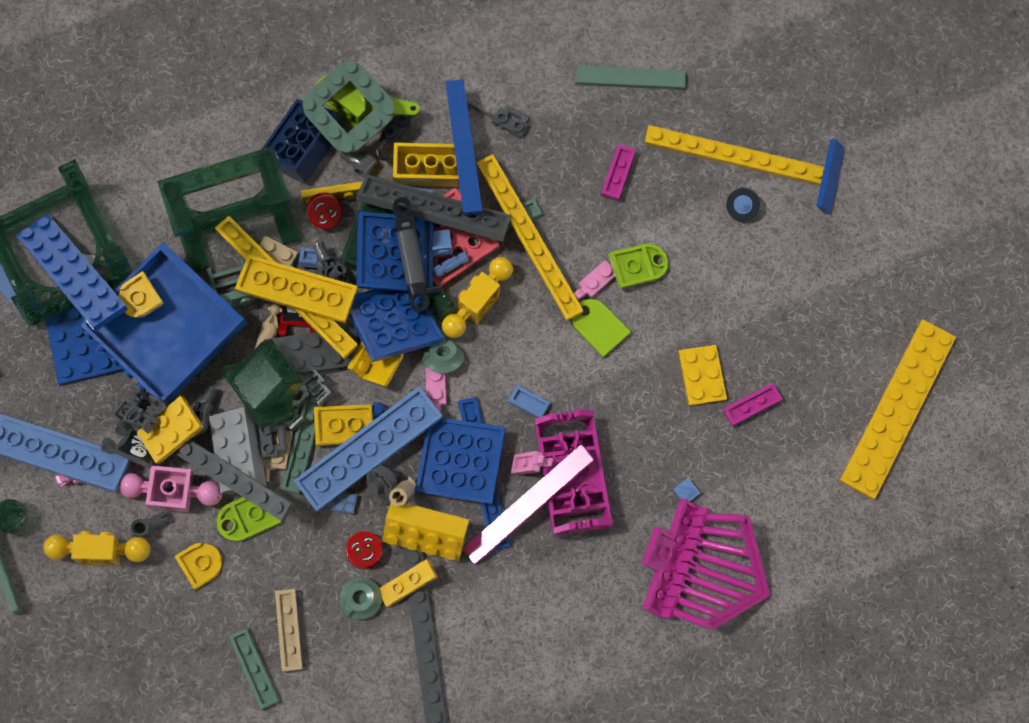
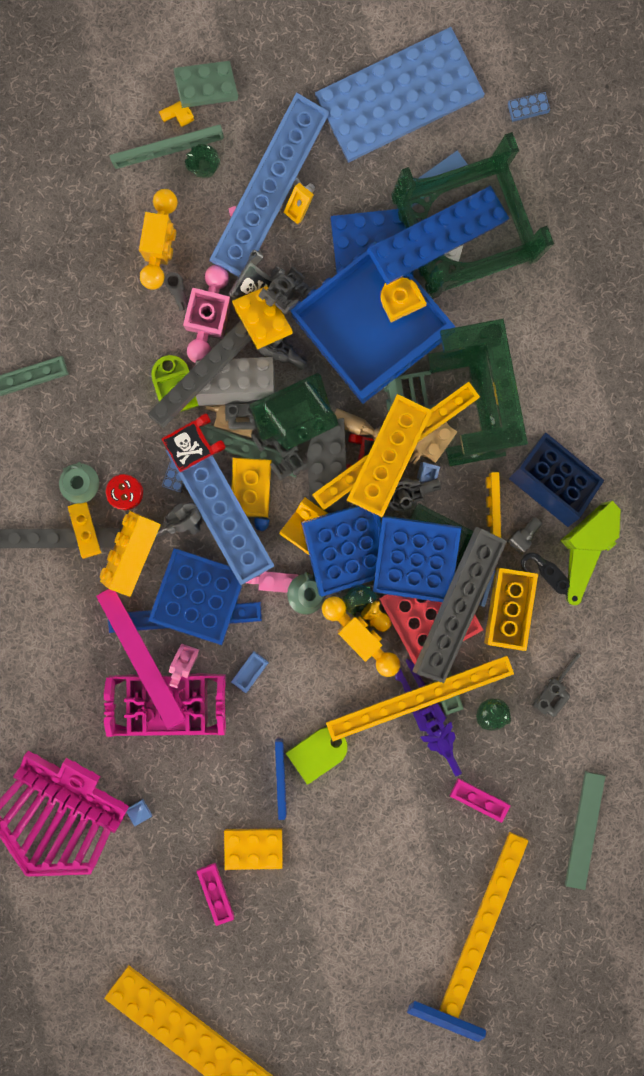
camera: 105 degrees right, 15 degrees up
(46, 412) = (299, 201): none -> yellow piece
(200, 563) = (135, 336): yellow tile -> none
(288, 630) = (58, 412): tan plate -> none
(308, 487) = (189, 445): none -> flag
(324, 210) = (474, 494): red head -> none
(332, 84) = (565, 506): sand green plate -> none
(402, 492) = (167, 536): tan wheel -> none
(411, 257) = (406, 575): piece -> none
(442, 243) = (423, 608): medium blue bracket -> none
(450, 264) = (399, 614): medium blue axle -> none
(459, 283) = (376, 618): none -> yellow animal
(463, 147) = (523, 645): blue tile -> none
(535, 170) = (493, 714): none -> clear green hair
(563, 215) = (439, 737): none -> dark purple sword
(595, 281) = (366, 758): bright pink plate -> none
(628, 357) = (280, 774): none -> blue tile
(636, 265) = (376, 803): lime tile -> none
(743, 204) = (427, 924): black wheel -> none

